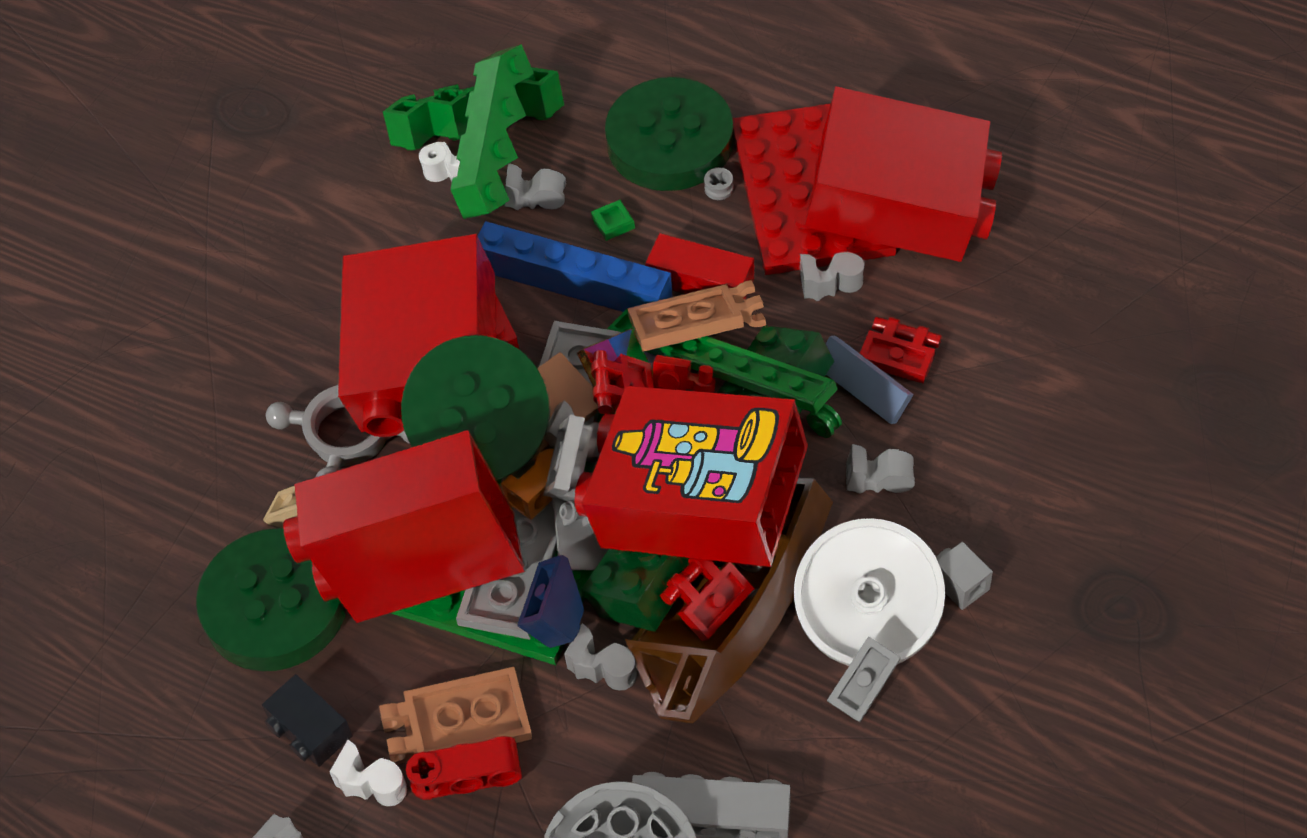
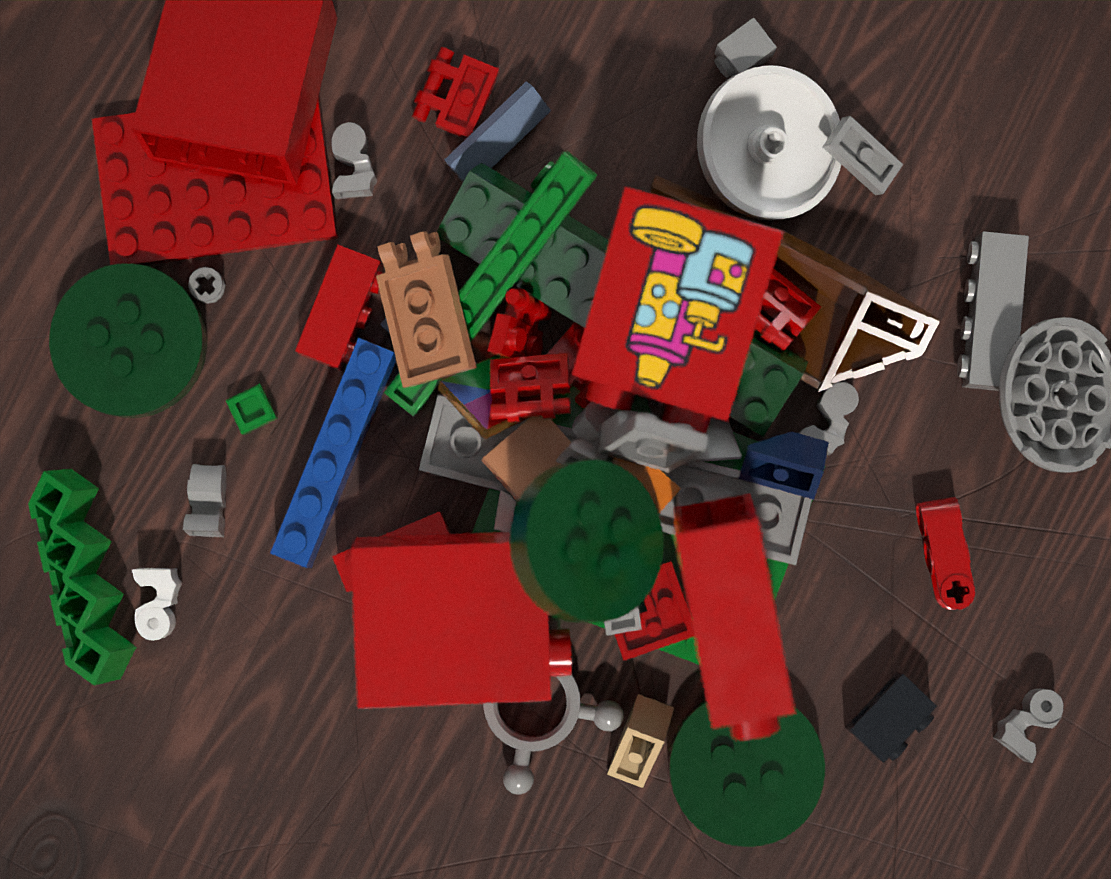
camera: 90 degrees left, 30 degrees up
(380, 778) = (956, 634): white leg -> none
(457, 713) = (887, 561): nougat tile -> none
(486, 141) = (121, 546): green brick -> none
(888, 471) = (616, 126): light grey leg -> none

